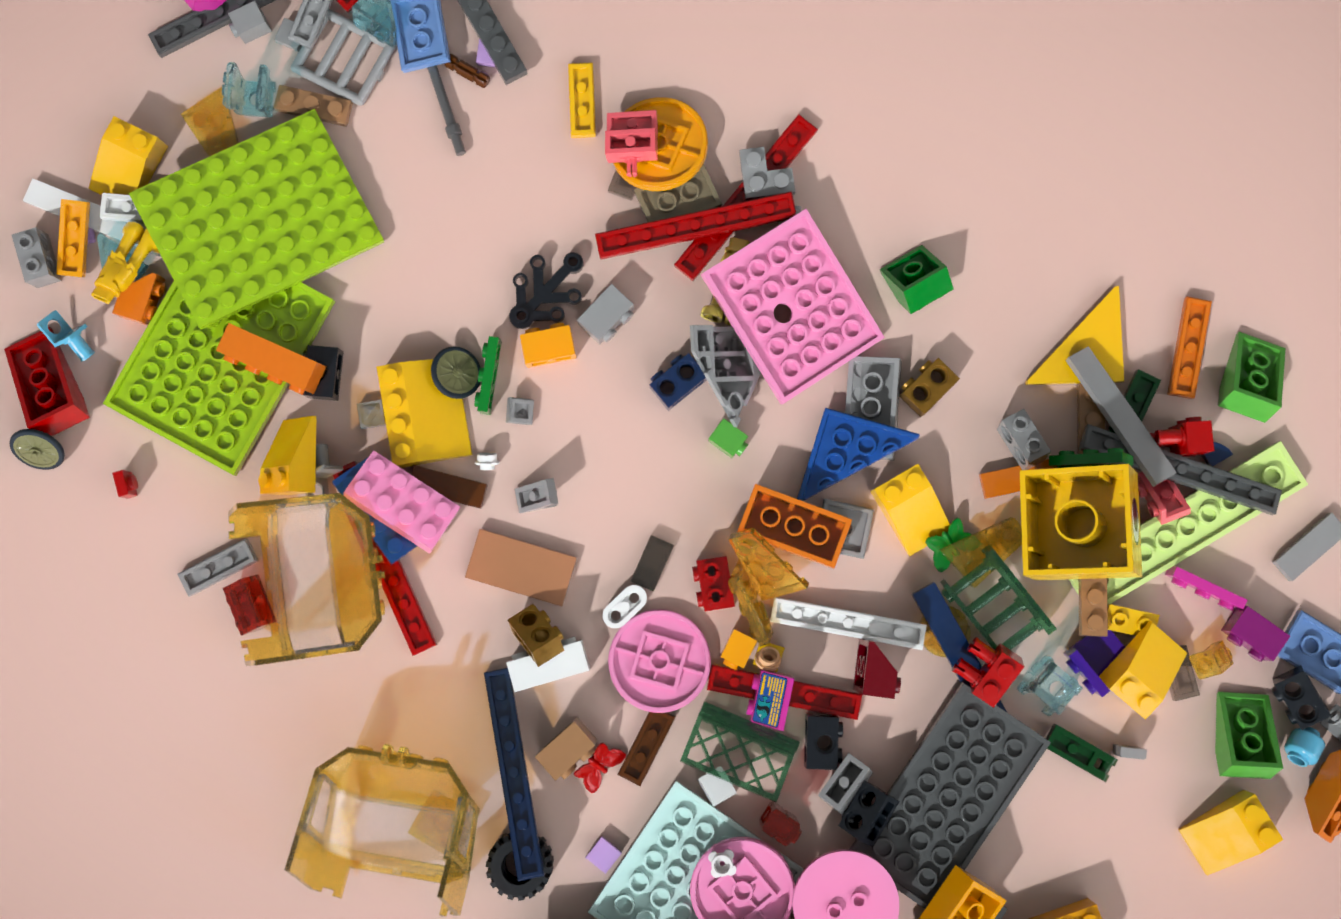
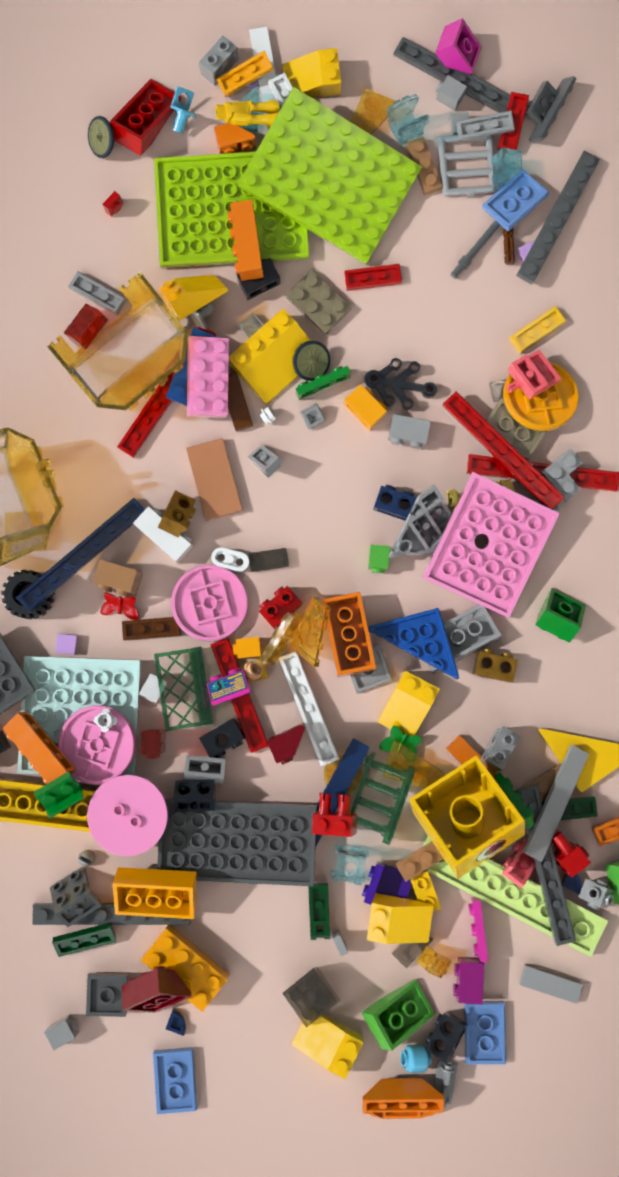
camera: 55 degrees right, 0 degrees up
(392, 322) = (318, 302): none -> dark tan plate
(403, 243) = (373, 277): none -> red tile
(1170, 820) = (311, 996): none -> clear smoke brick
(1245, 435) = (596, 894): none -> light grey brick

